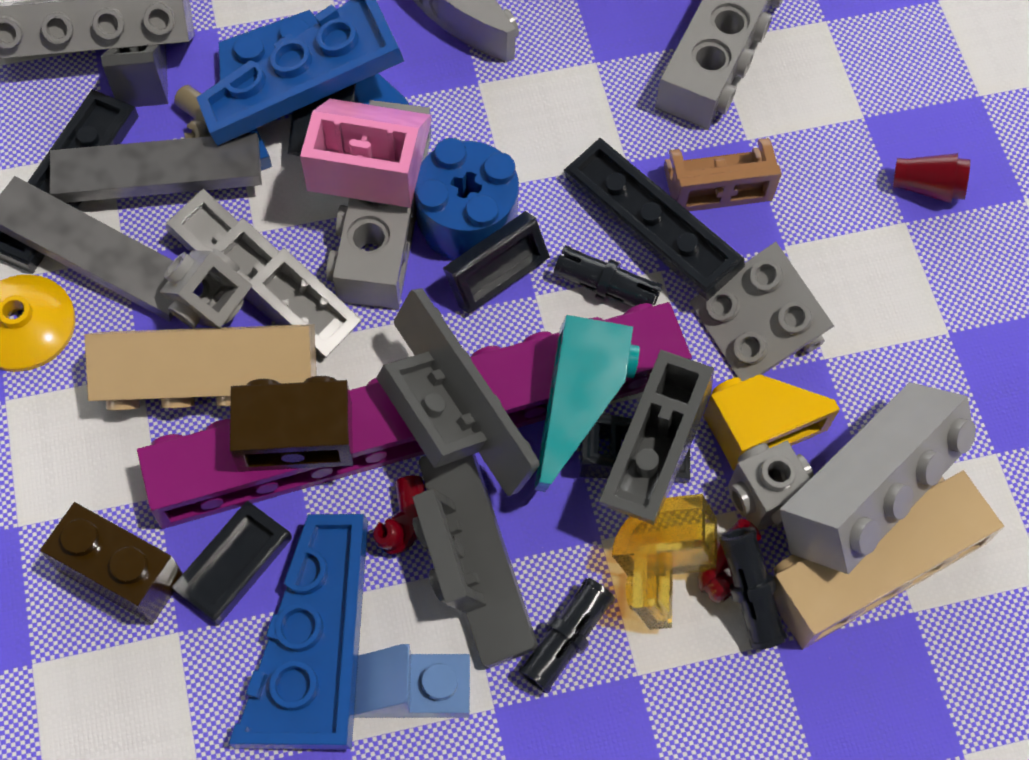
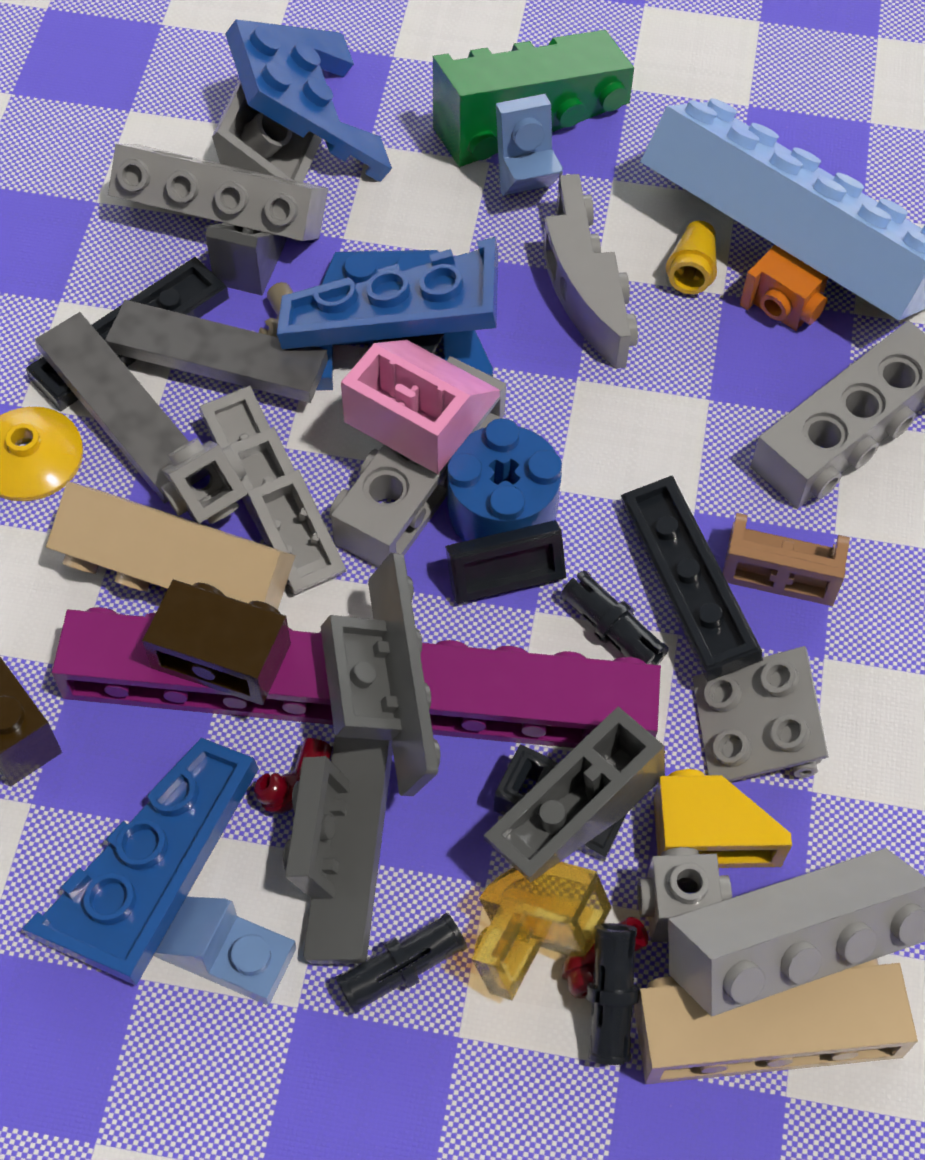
camera: 25 degrees right, 5 degrees down
(232, 562) = (111, 757): black tile -> none
(587, 374) = (524, 715): teal slope -> none

